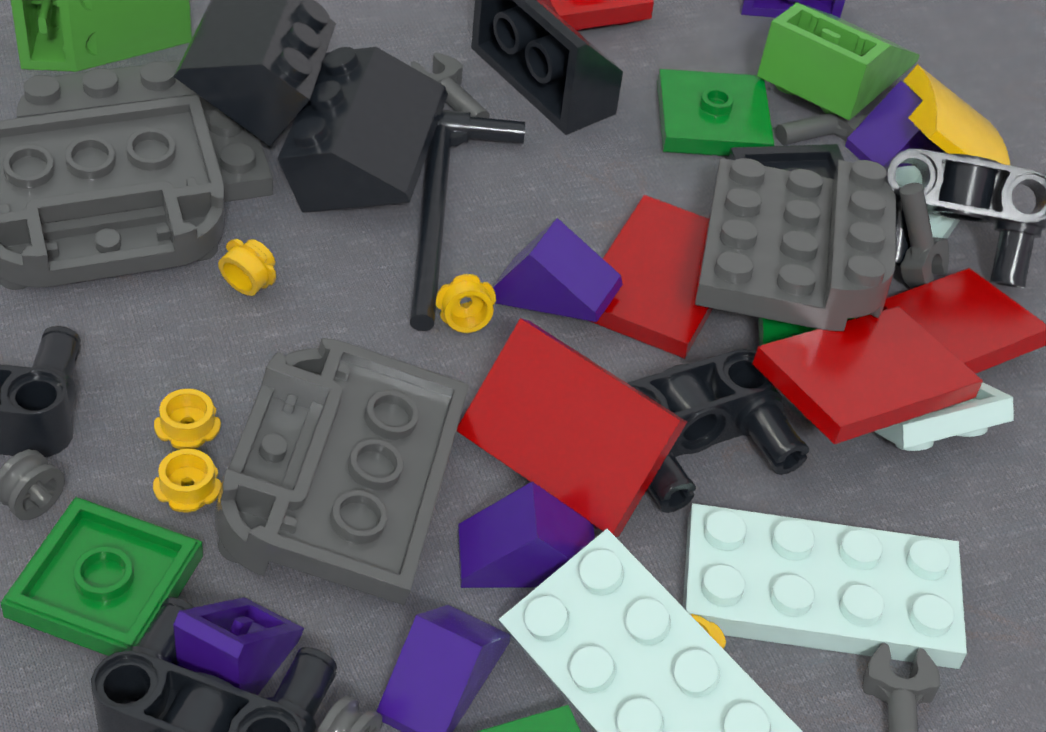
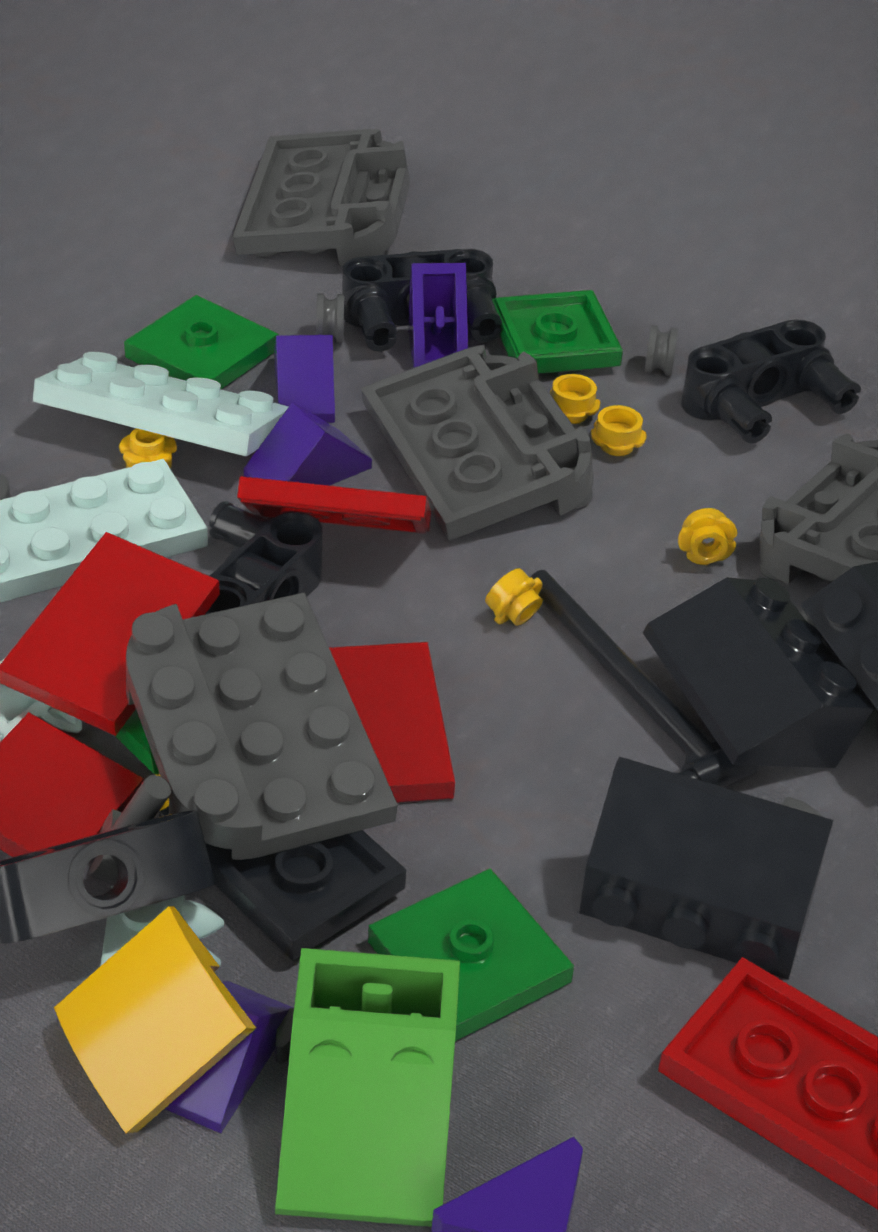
camera: 150 degrees right, 5 degrees down
(559, 277) = (456, 631): dark purple slope -> none

